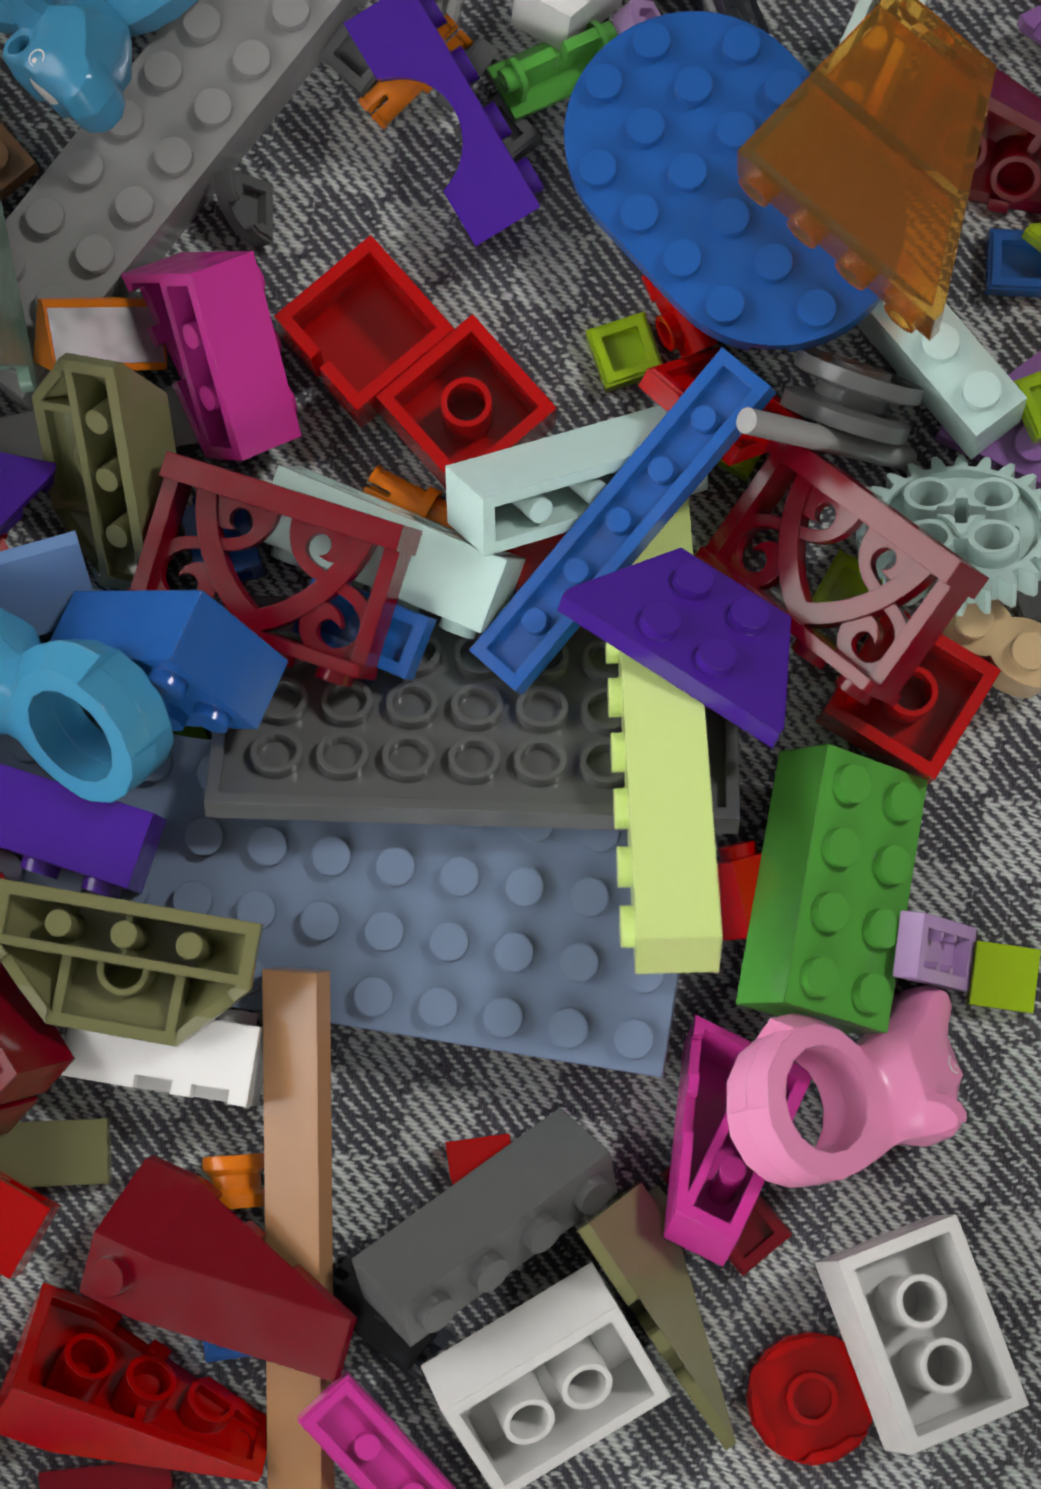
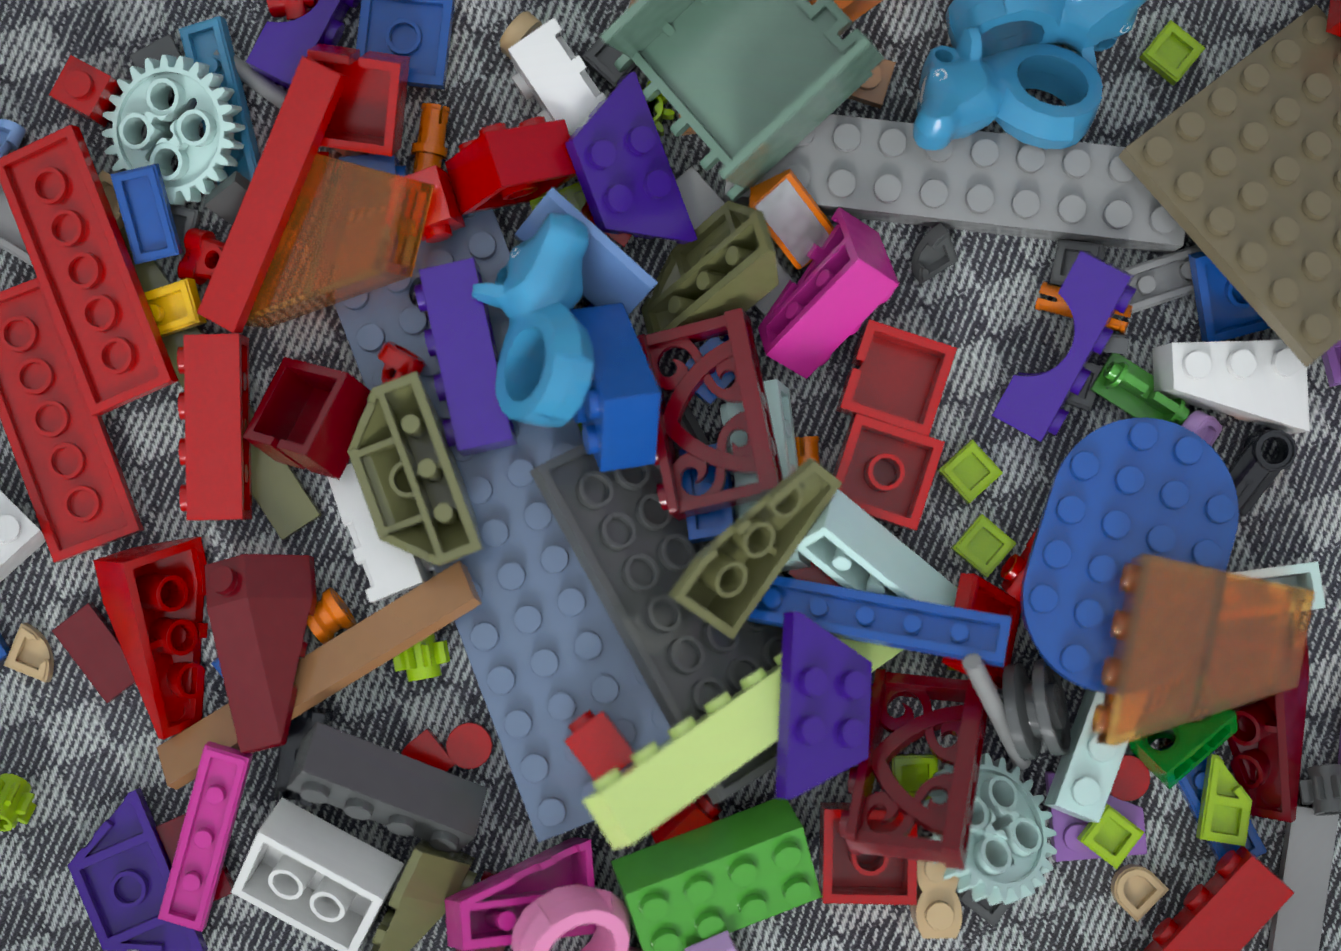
camera: 65 degrees right, 5 degrees up
(356, 1094) = (423, 659): none -> lime gear
(461, 604) = (746, 558): none -> olive wedge
(497, 1102) = (469, 745): none -> red tile
(528, 316) = (970, 471): none -> lime tile
(583, 927) = (598, 744): none -> red brick
(992, 243) = (1191, 746): none -> green brick
(1002, 340) = (1131, 779): none -> red tile

